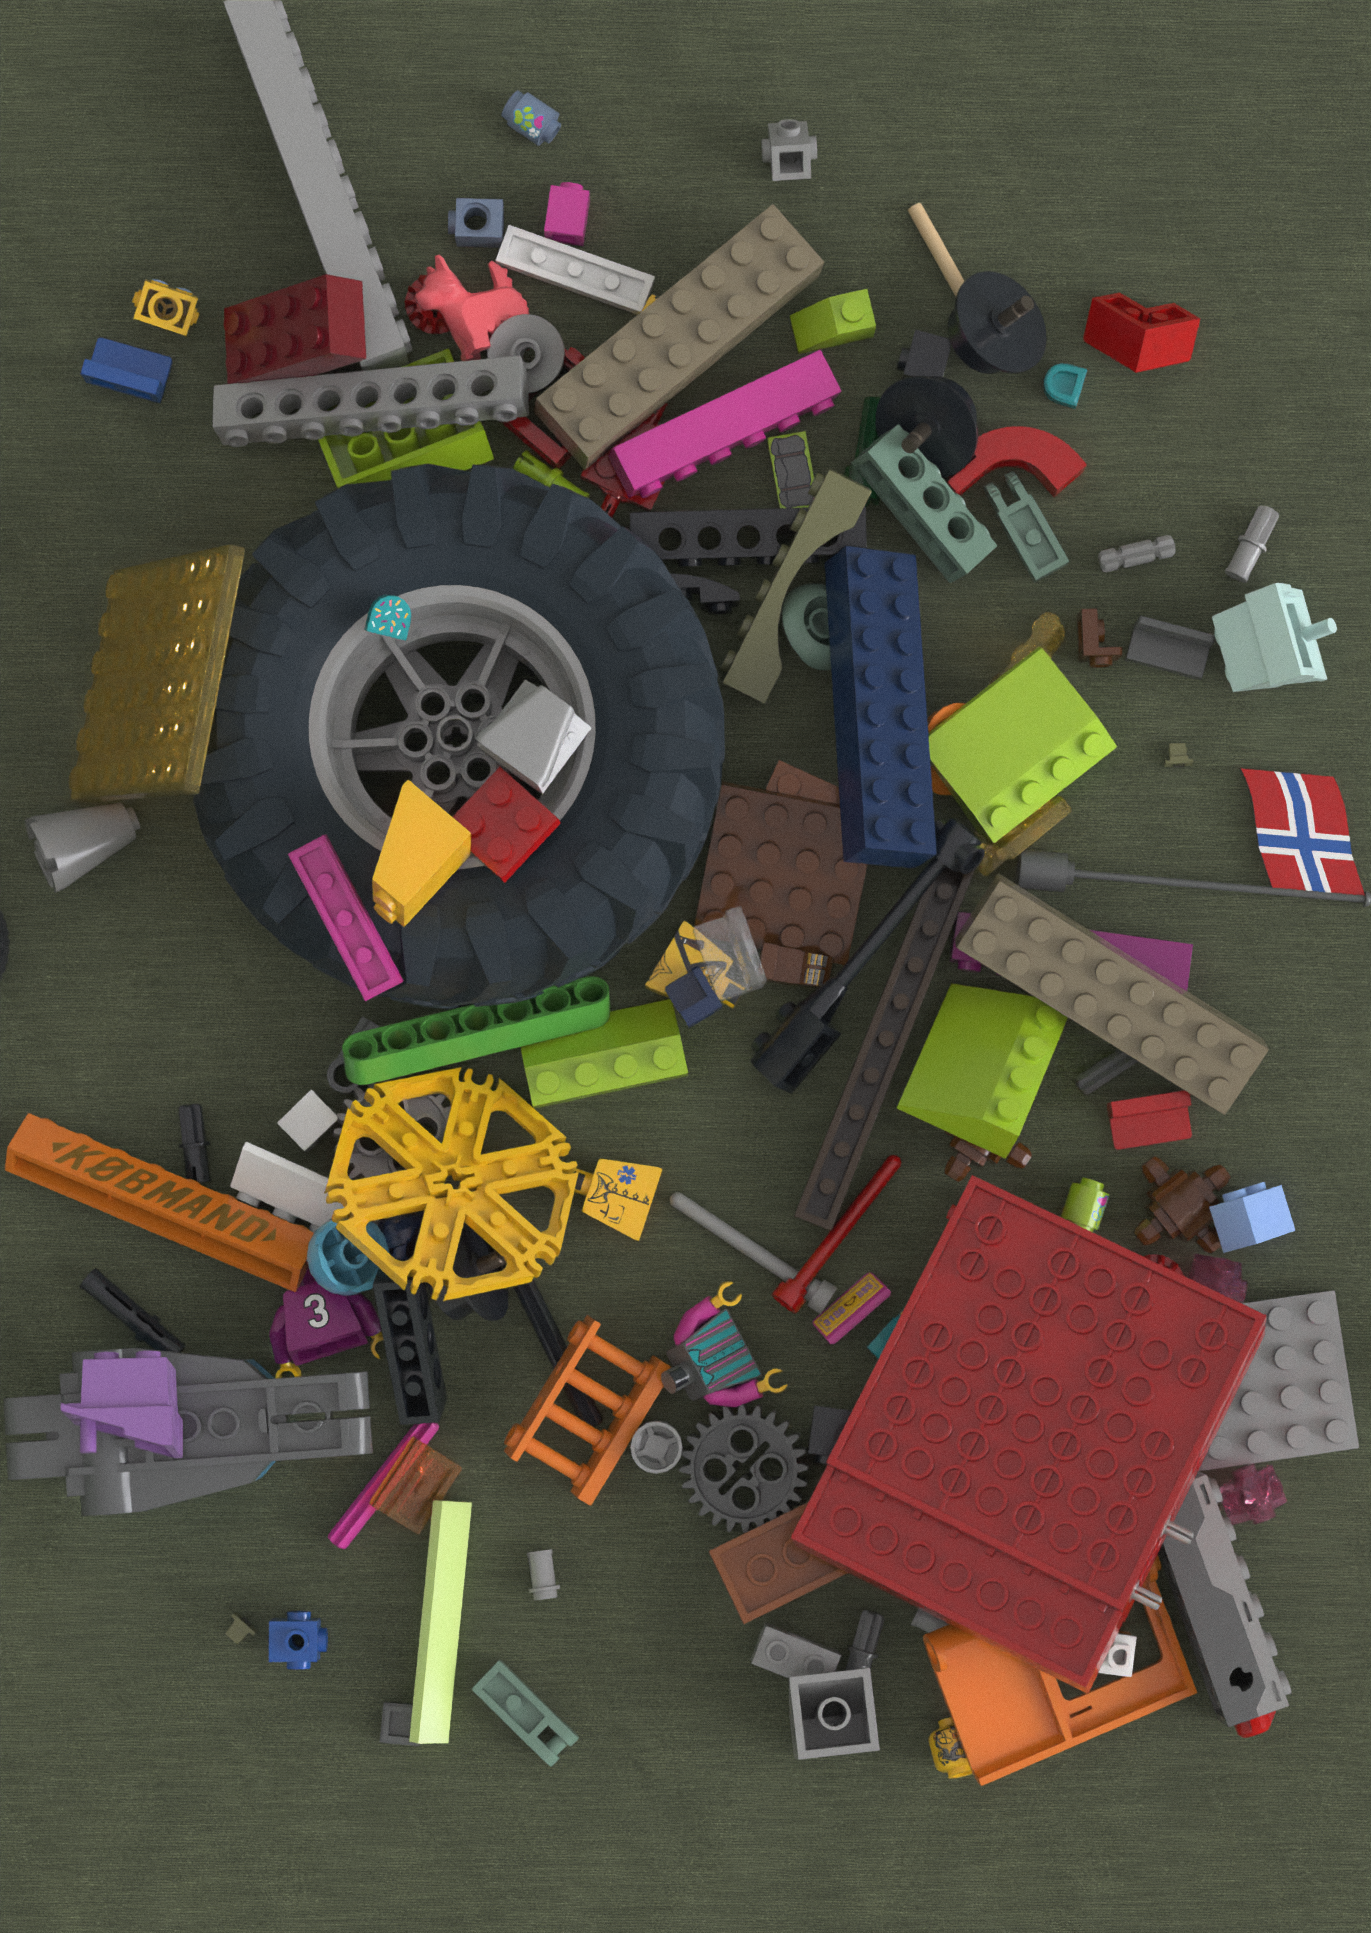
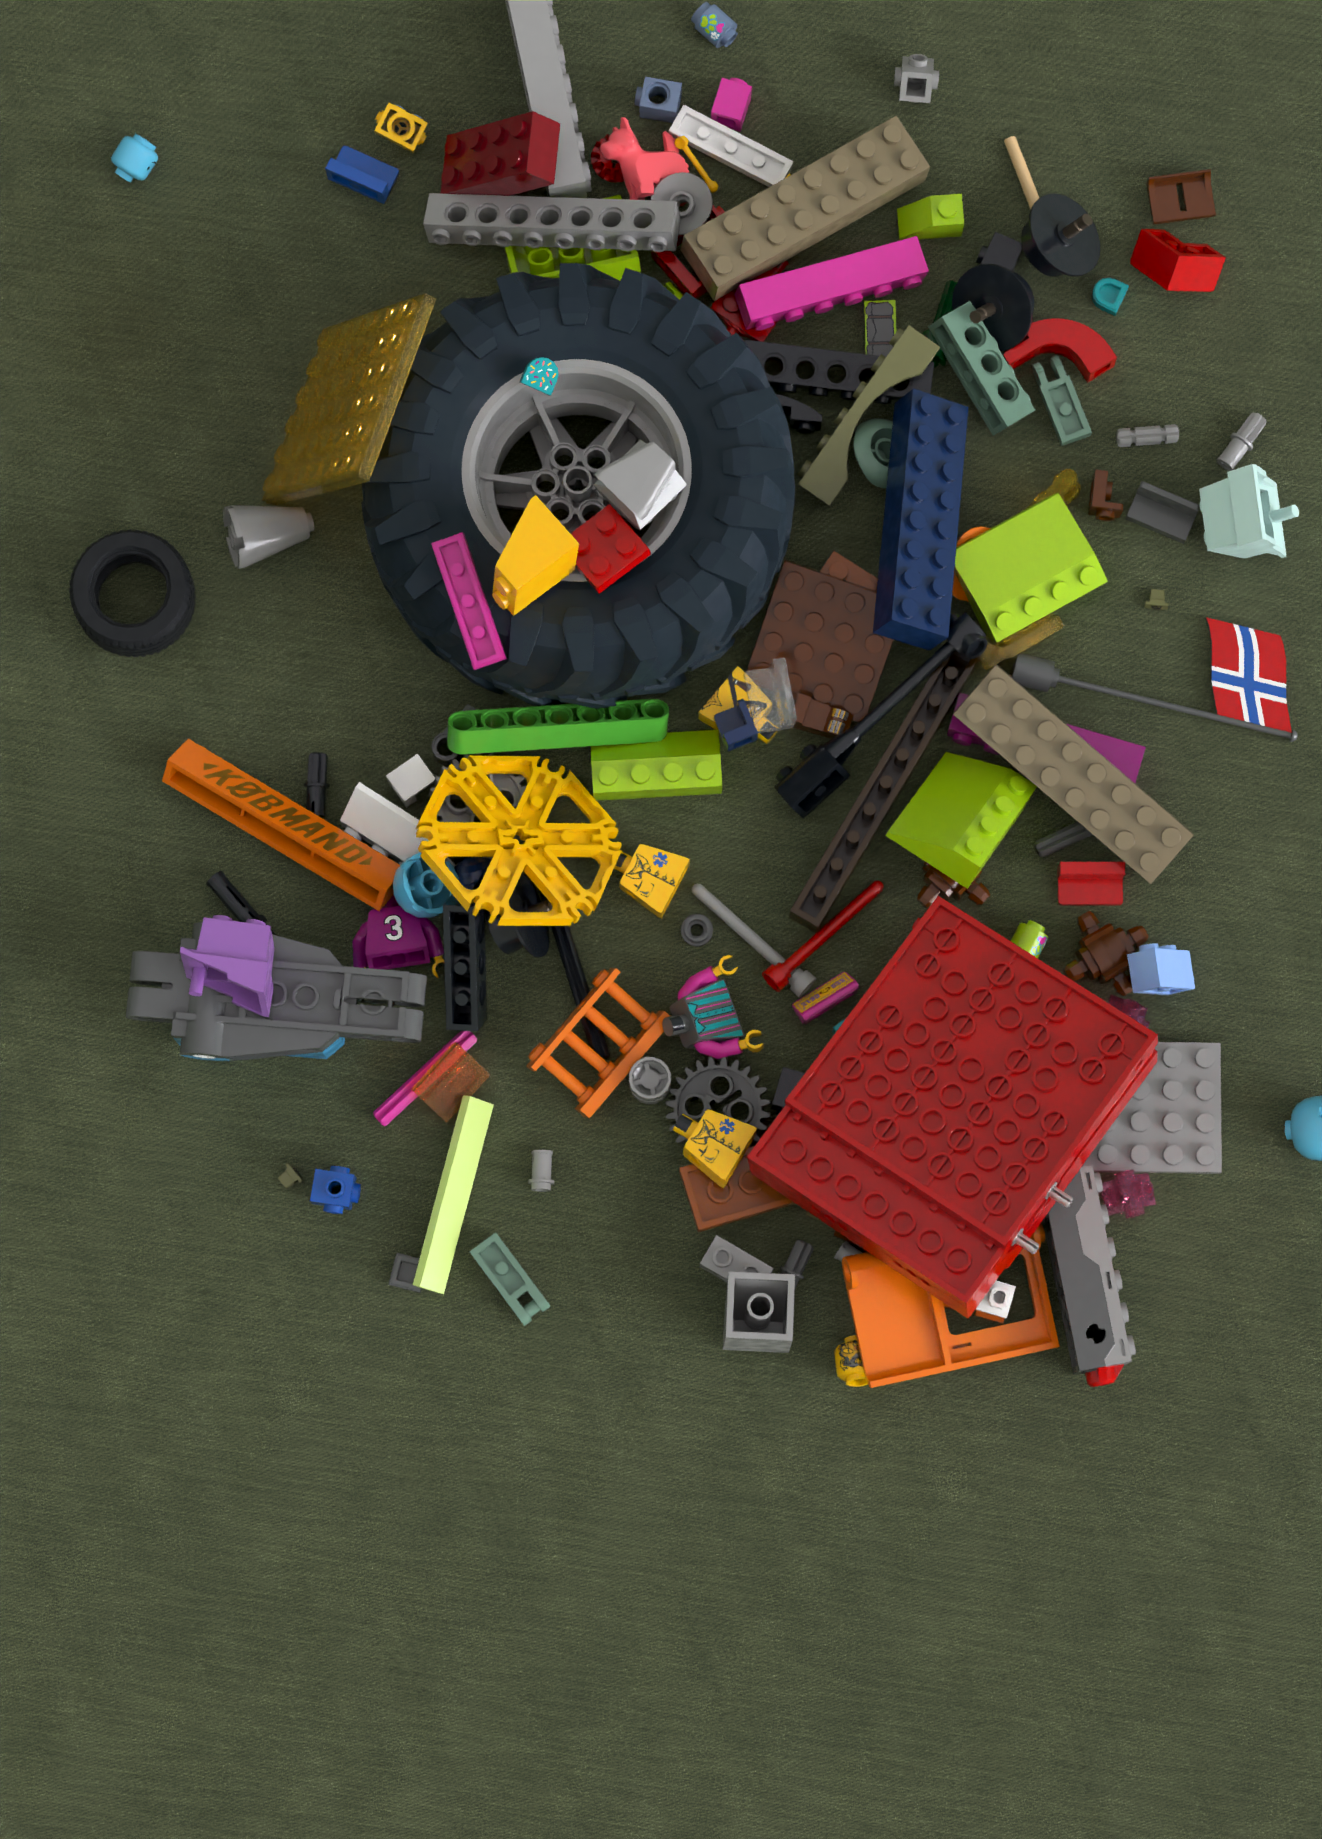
camera: 15 degrees right, 5 degrees down
(514, 274) = (682, 143): none -> yellow hinge
(684, 1263) = (693, 920): none -> dark grey plate
(747, 1517) = (715, 1143): none -> yellow torso
(1152, 243) = (1196, 195): none -> reddish brown piece

